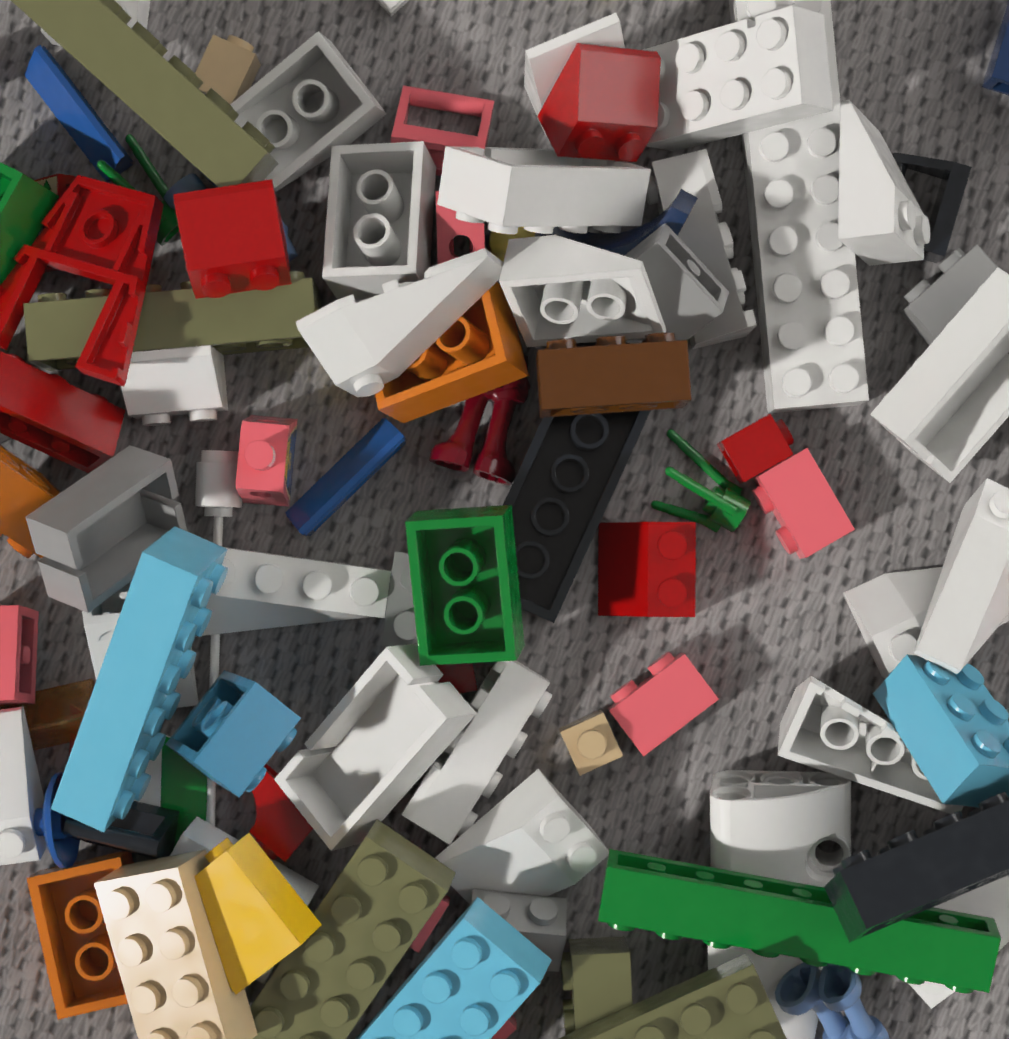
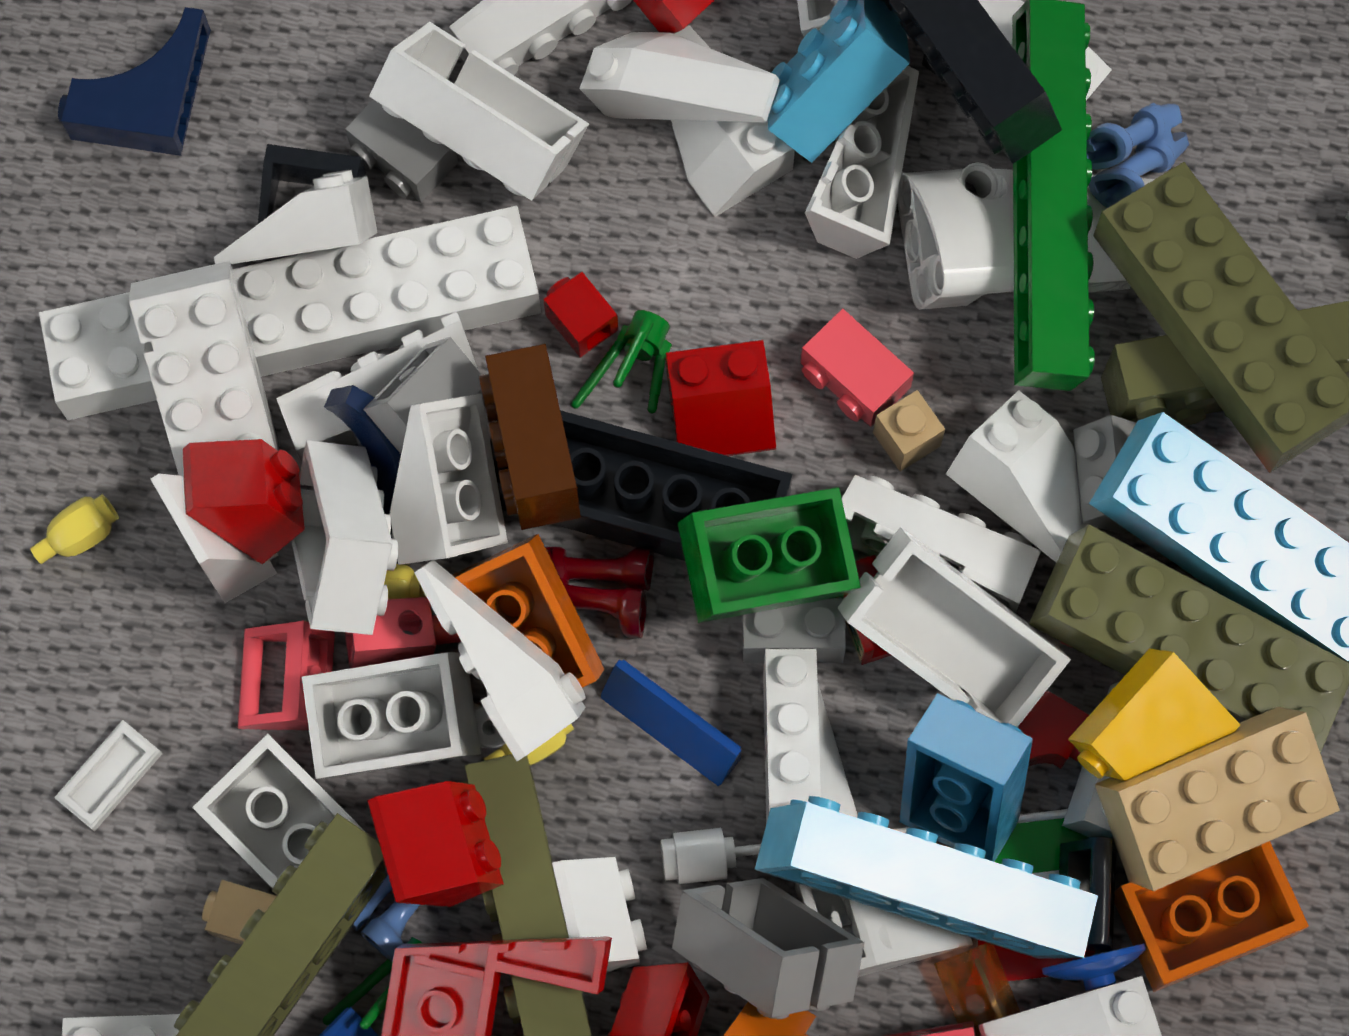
camera: 100 degrees left, 15 degrees down
(266, 460) = (663, 803): coral torso -> none
(802, 505) = (633, 260): coral brick -> none

